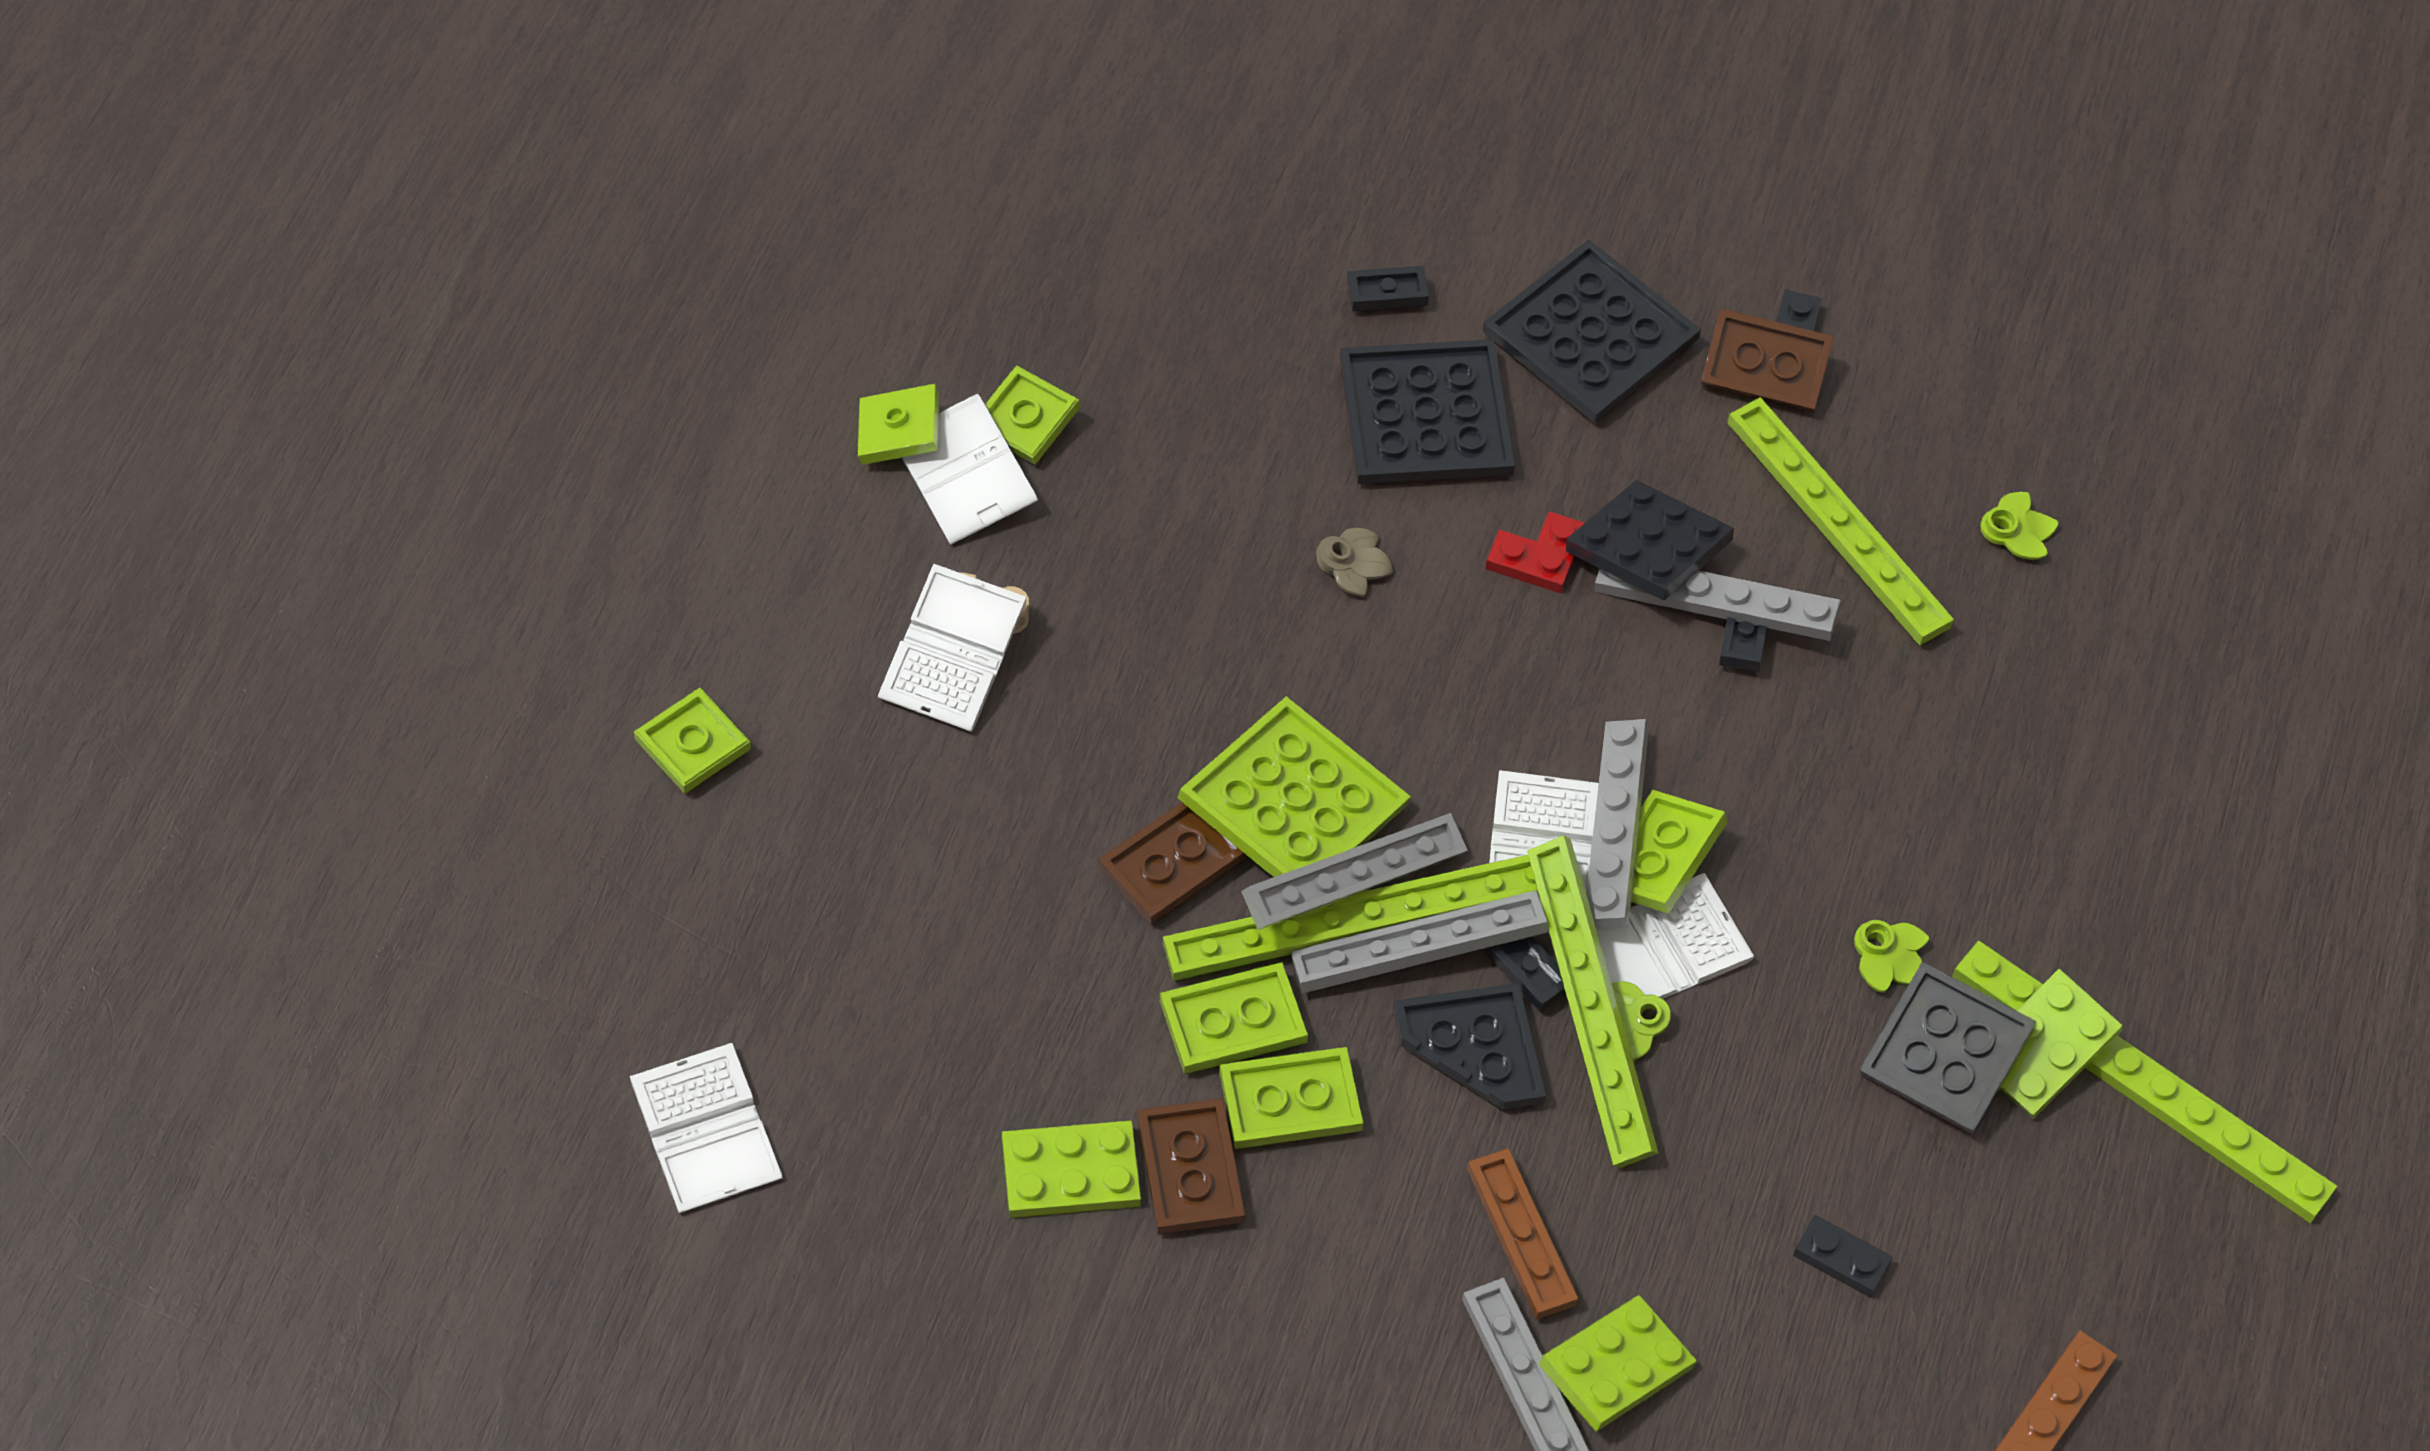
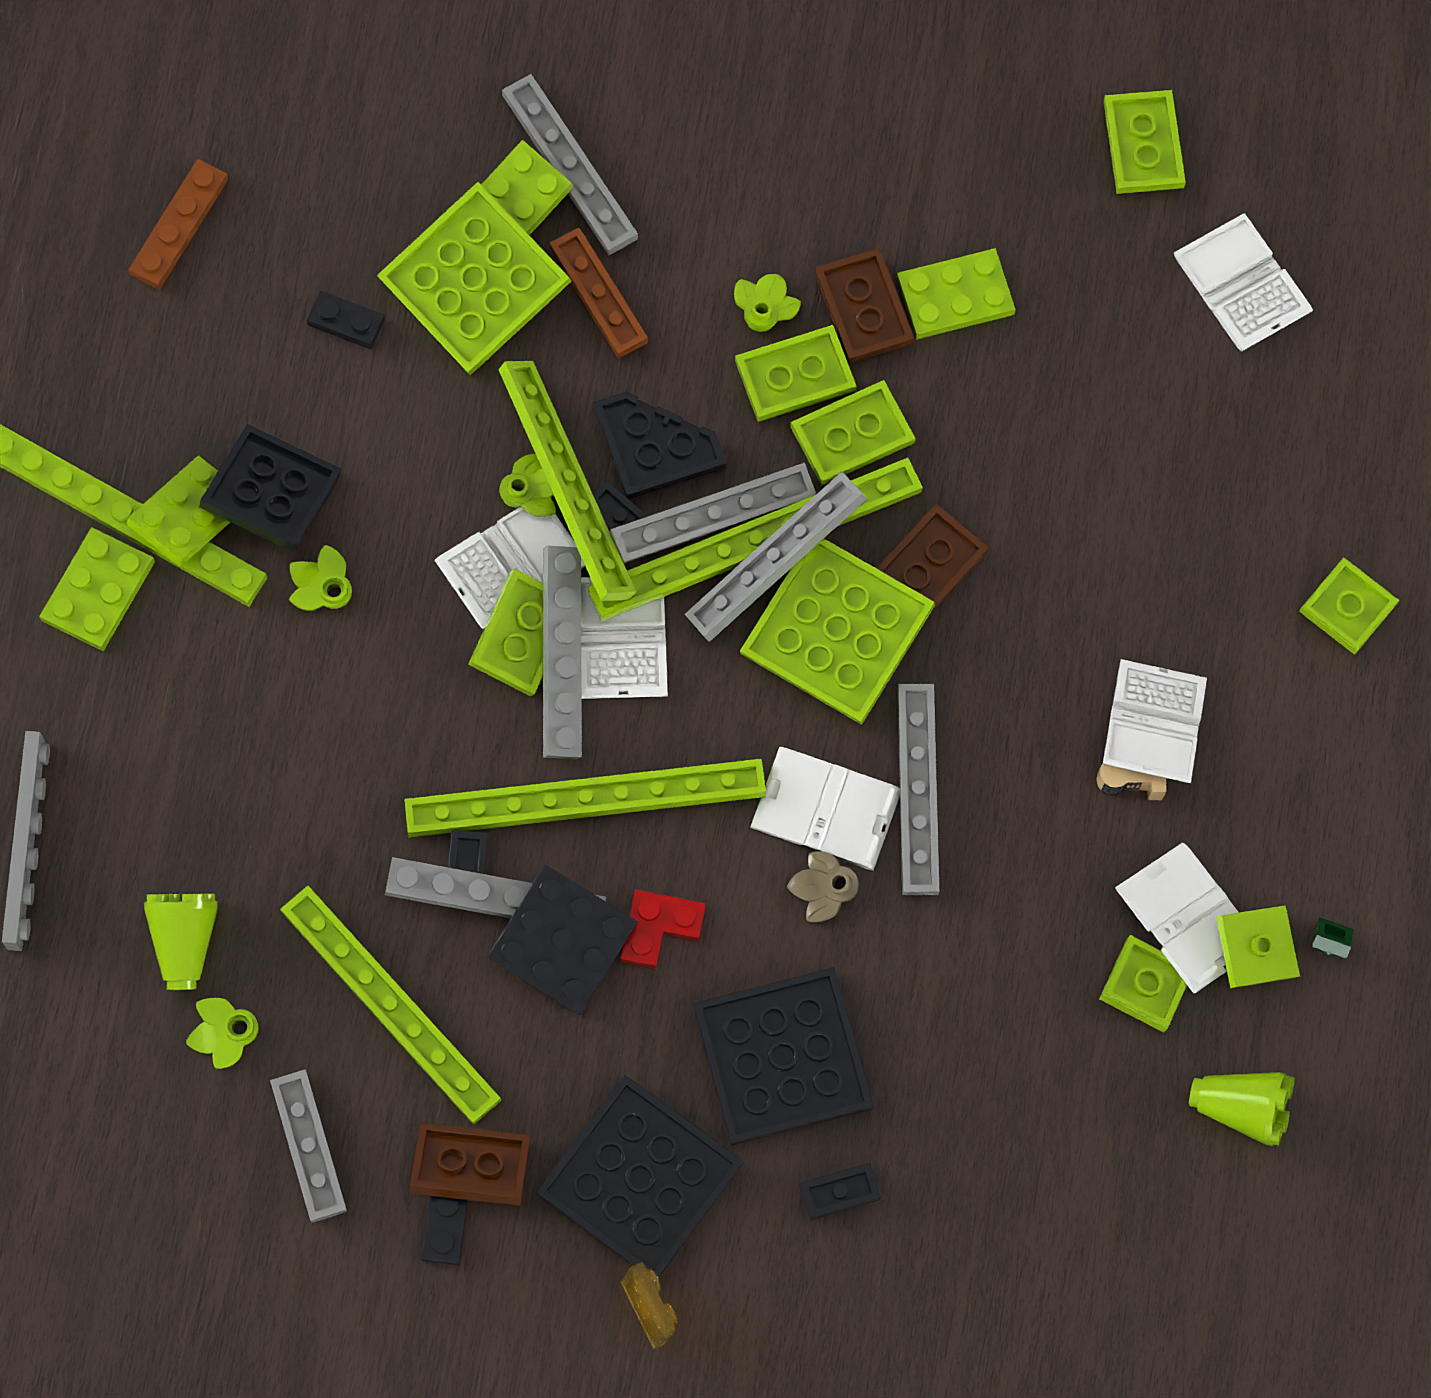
camera: 170 degrees right, 15 degrees up
(783, 1317) = (1144, 141): none -> lime plate
(814, 422) = (1332, 938): none -> dark green plate
(952, 287) = (1246, 1103): none -> lime cone
(1232, 634) = (918, 789): none -> light grey plate
(1309, 1198) = (766, 298): none -> lime plate
(1337, 636) = (826, 808): none -> white piece
(1599, 208) = (655, 1317): none -> clear yellow plate
(1606, 679) = (585, 798): none -> lime plate
(1679, 1263) = (474, 278): none -> lime plate
(1932, 410) = (308, 1146): none -> light grey plate
(2063, 614) = (181, 935): none -> lime cone
(2157, 987) = (97, 589): none -> lime plate
(2233, 742) = (24, 855): none -> light grey plate

